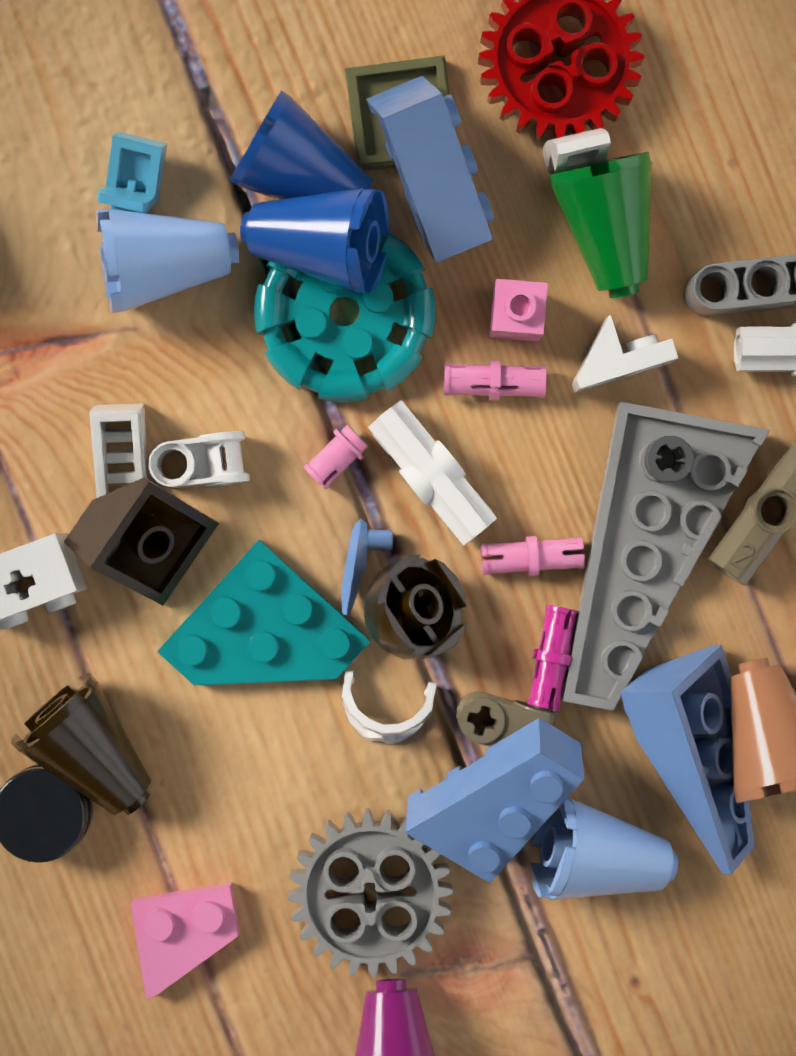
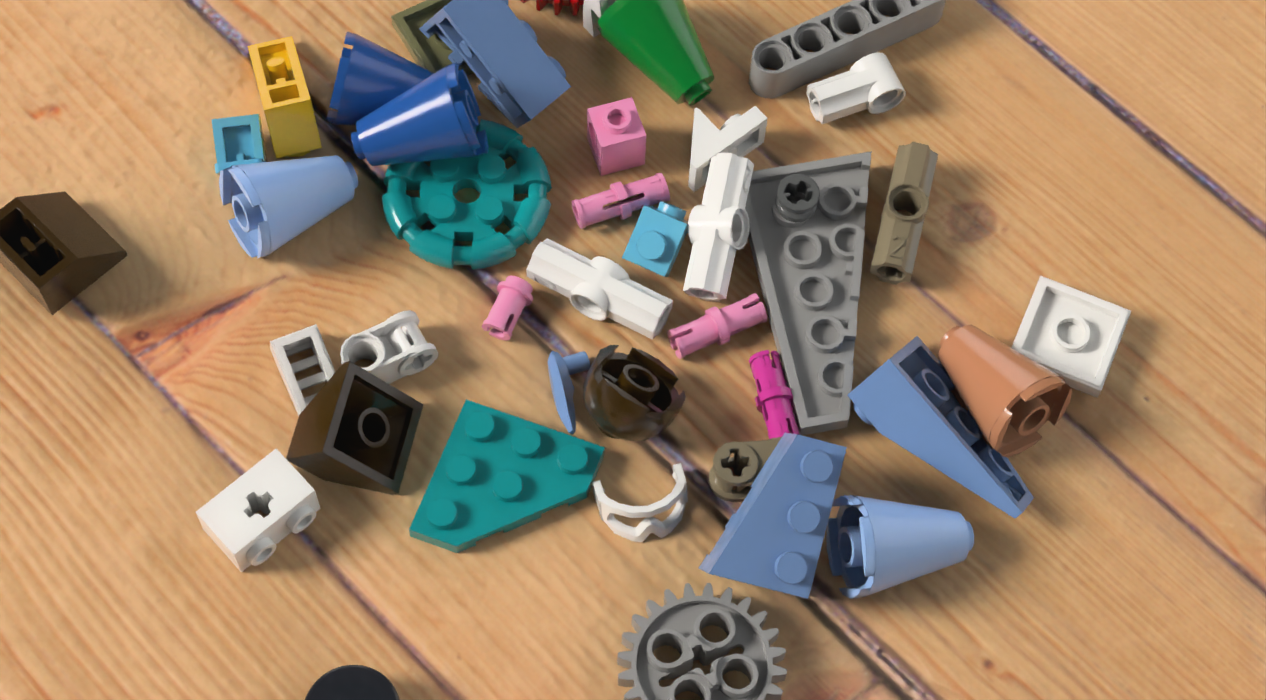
camera: 25 degrees left, 25 degrees down
(87, 748) = (377, 631): dark brown cone -> none
(199, 127) = (285, 98): none -> yellow slope
(515, 438) = (657, 238): none -> medium azure bracket
(576, 458) = (718, 227): none -> white piece

